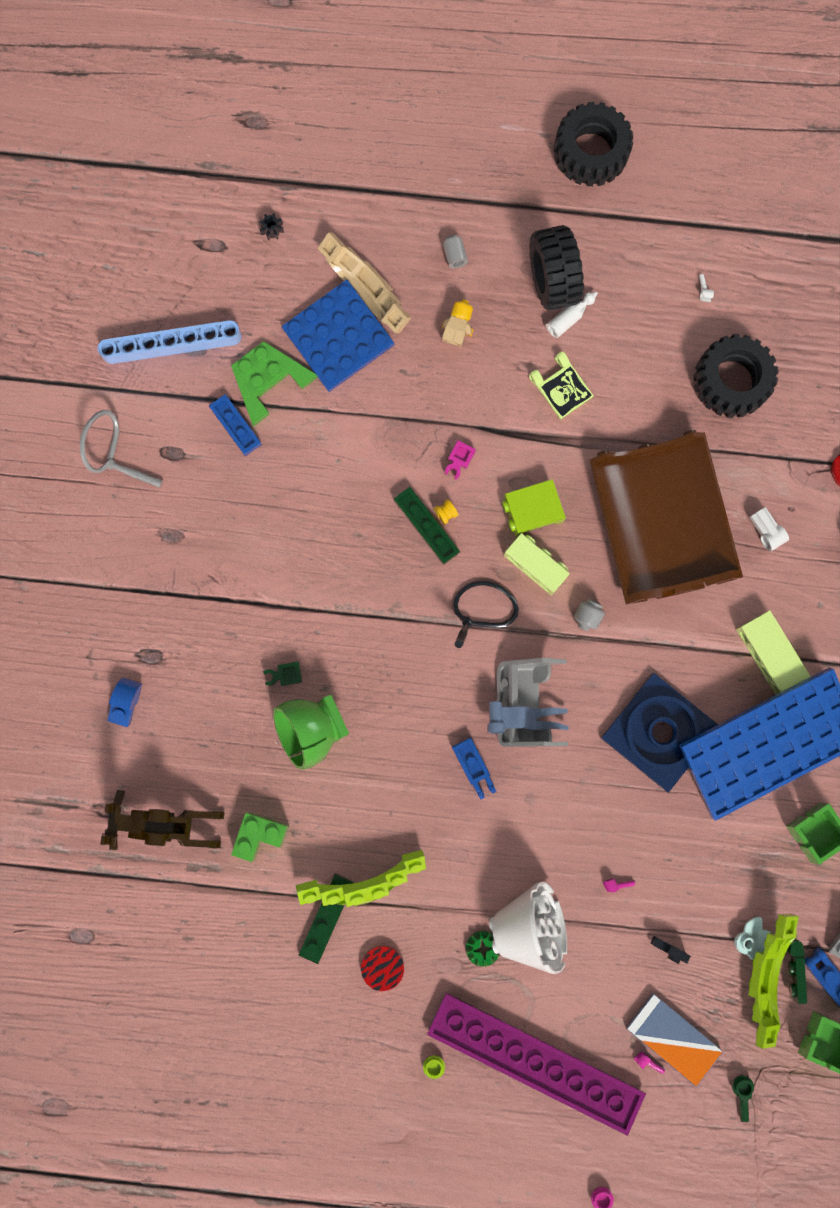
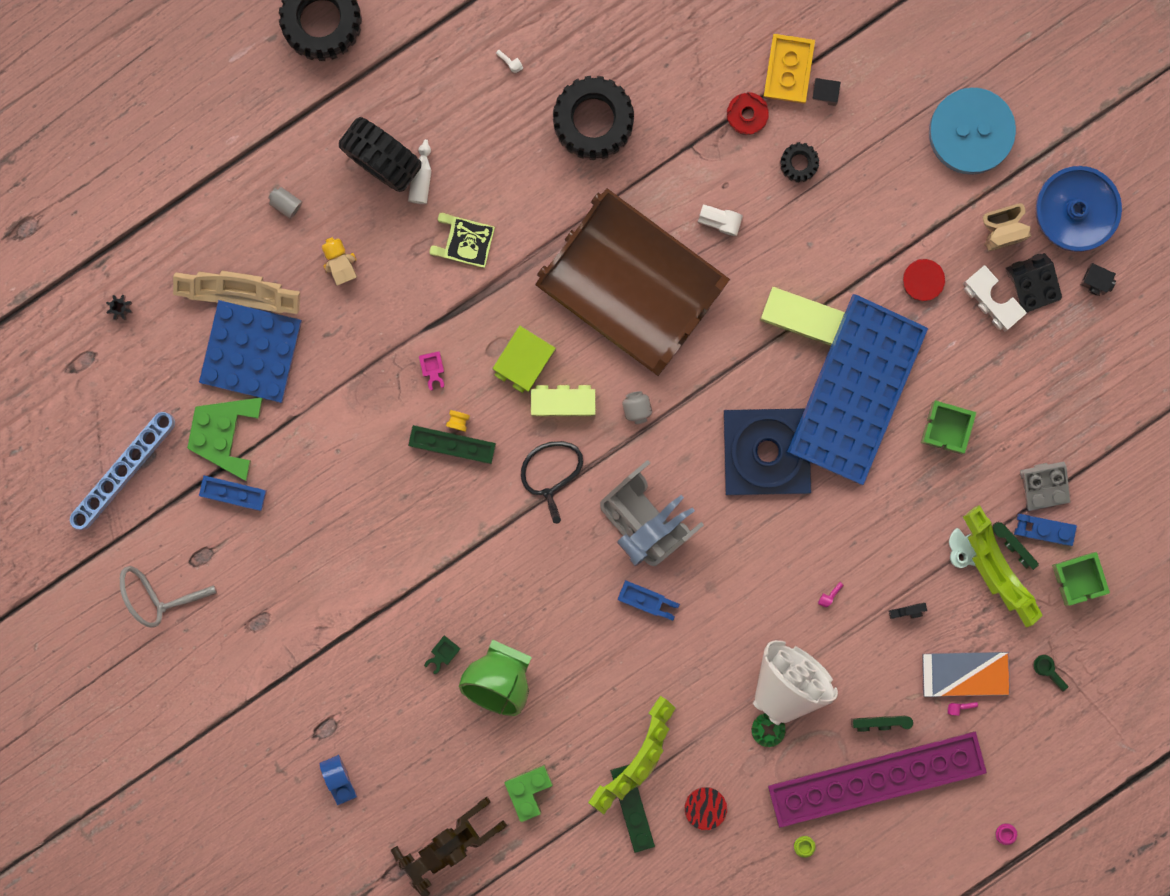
camera: 30 degrees left, 5 degrees up
(578, 1023) = (882, 723): none -> dark green plate

